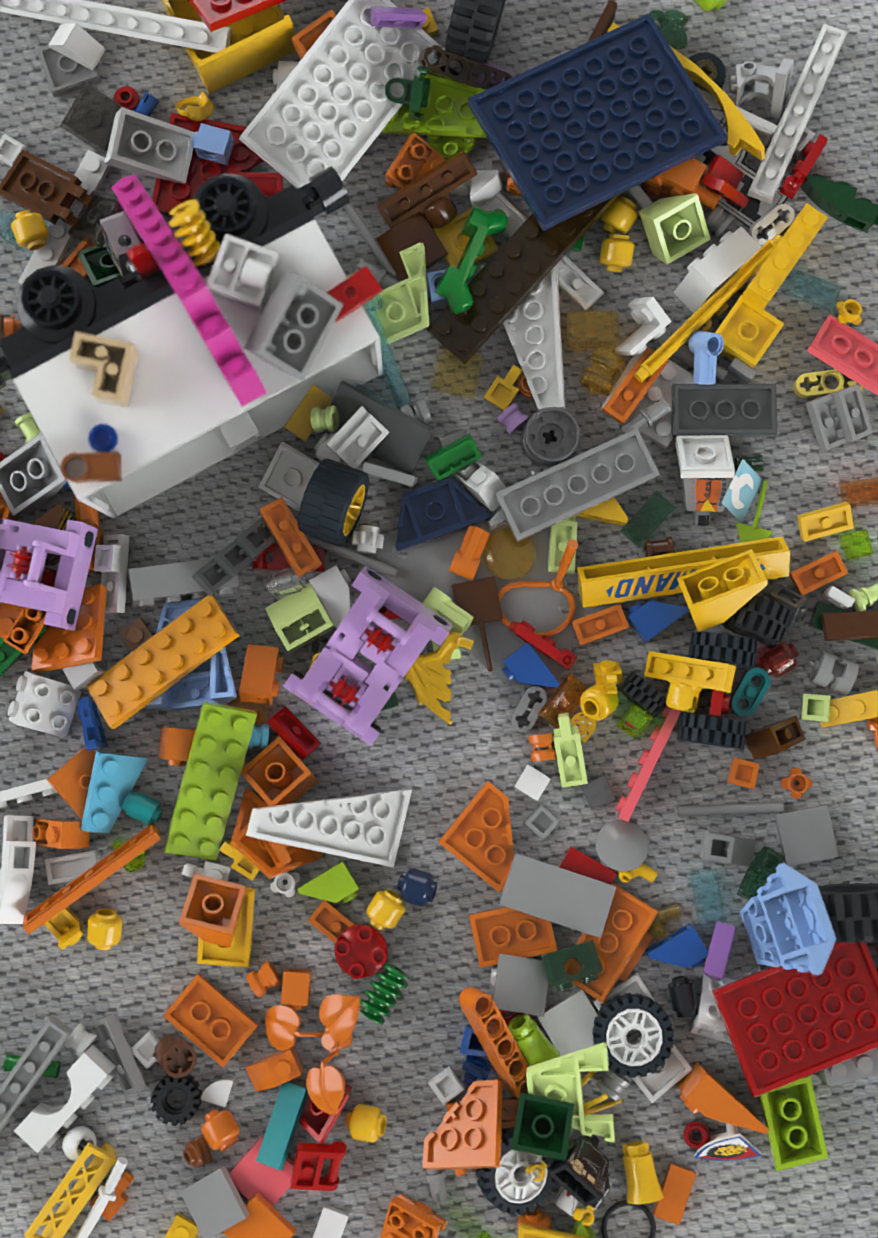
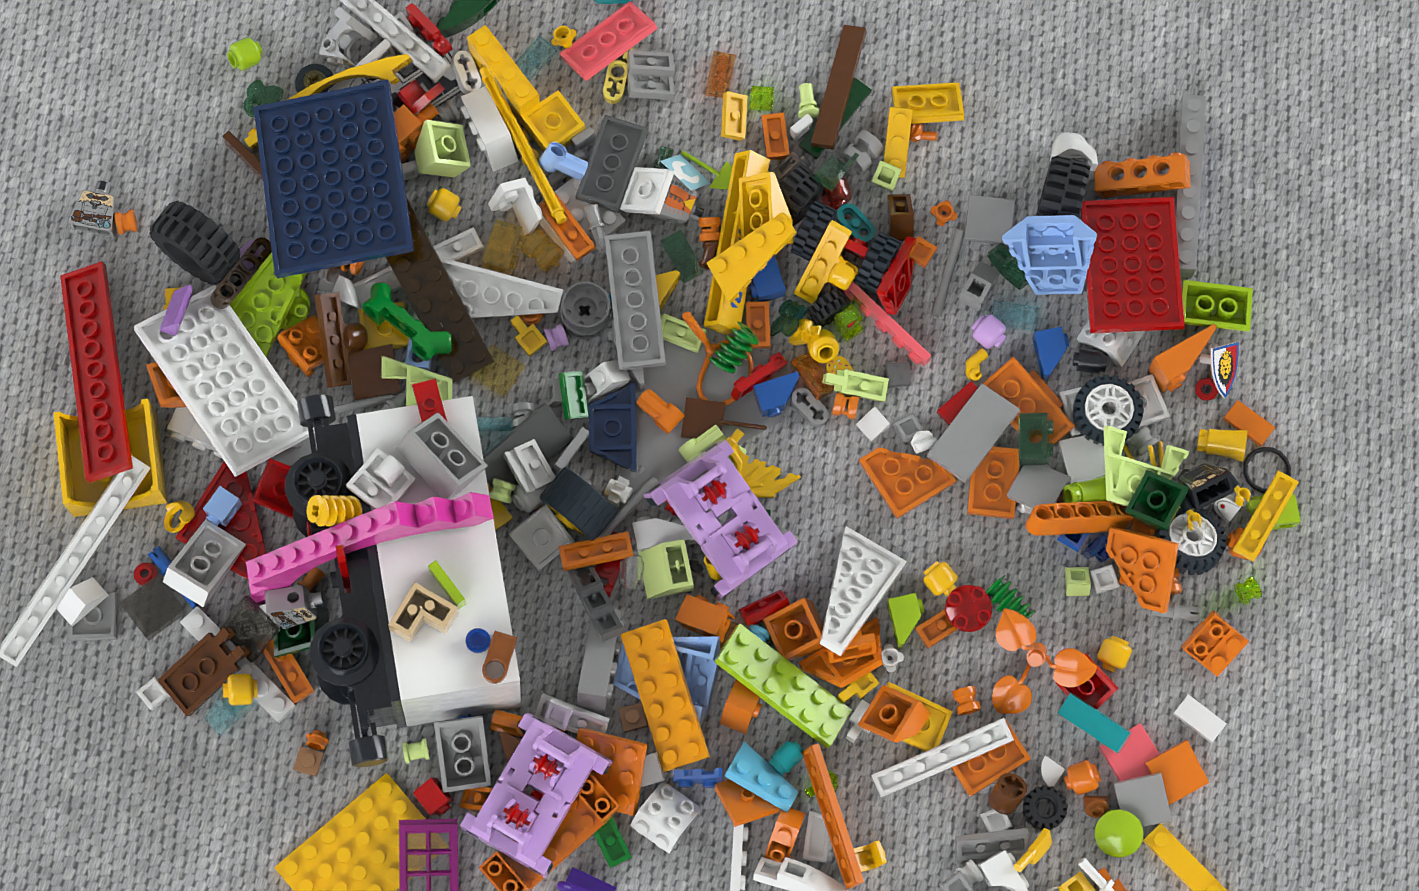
camera: 75 degrees left, 10 degrees down
(104, 928) = (880, 823): yellow head -> none
(119, 1103) = (1035, 851): none -> yellow piece
(151, 382) = (446, 584): none -> lime tile
(173, 1187) = (1118, 833): none -> lime dish
(193, 974) = (942, 757): none -> white tile
(275, 1069) = (1046, 716): orange slope -> none
(296, 987) = (982, 675): orange brick -> none
(309, 1164) = (1132, 706): red plate -> none
(415, 92) = (249, 319): dark green tile -> none
(417, 887) = (930, 546): dark blue head -> none
(435, 1057) = (1077, 581): none -> yellowish green slope
(508, 557) = (673, 380): clear yellow dish -> none
(531, 843) = (923, 441): none -> white plate
(562, 611) = (735, 349): none -> green piece
(614, 655) = (789, 318): none -> clear green plate
(619, 216) = (416, 191): yellow head -> none
(621, 845) = (949, 368): light grey dish -> none
(659, 585) = (748, 256): none -> yellow wing
(666, 914) = (1018, 352): clear yellow arm -> none
(678, 876) = (989, 331): none -> lavender head
(681, 538) = (709, 234): none -> orange wheel
(700, 759) = (898, 279): none -> red wing
(719, 951) = (1061, 318): medium lavender slope -> none
(797, 649) = (834, 171): none -> clear green panel

